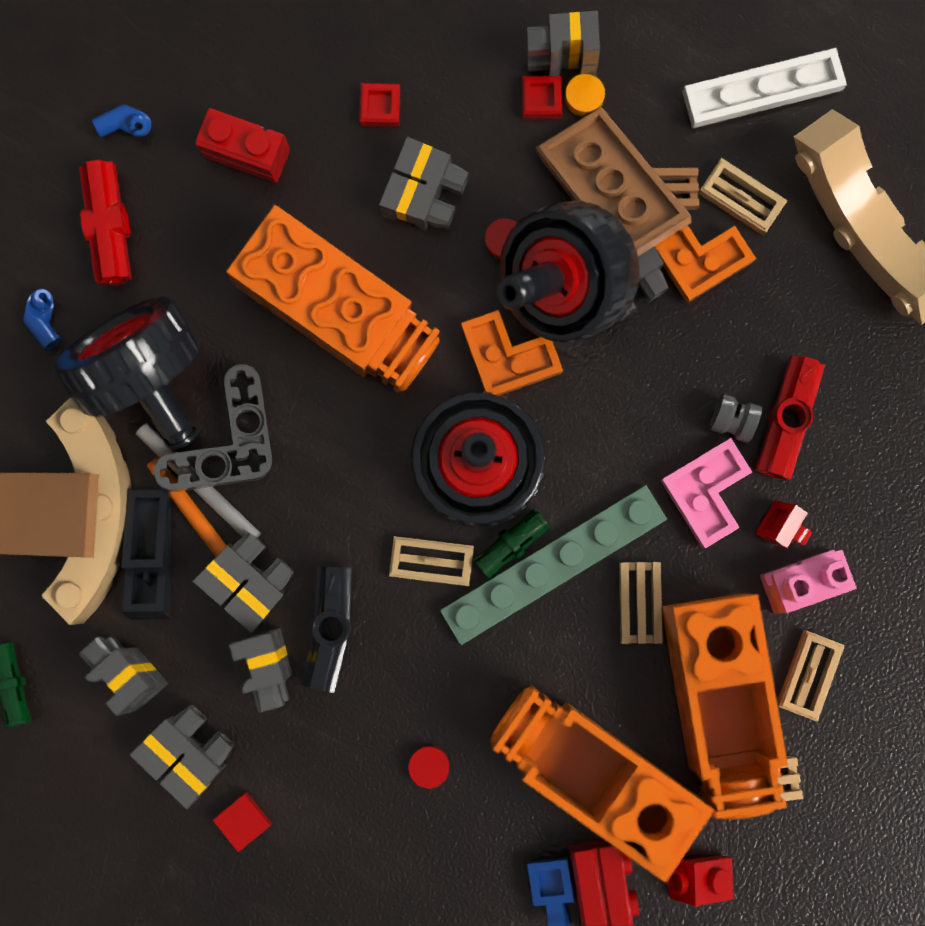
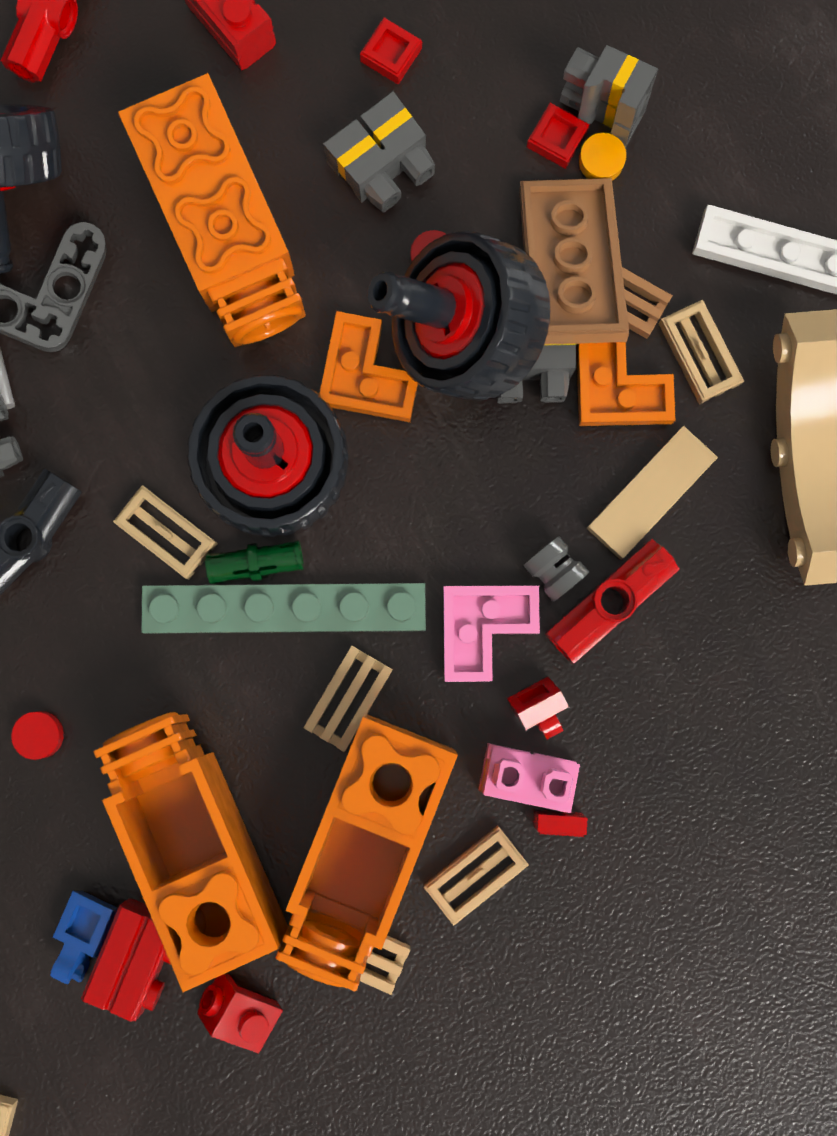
camera: 30 degrees right, 0 degrees up
(769, 321) = (652, 493): none -> tan tile
(850, 601) = (560, 823): none -> red tile

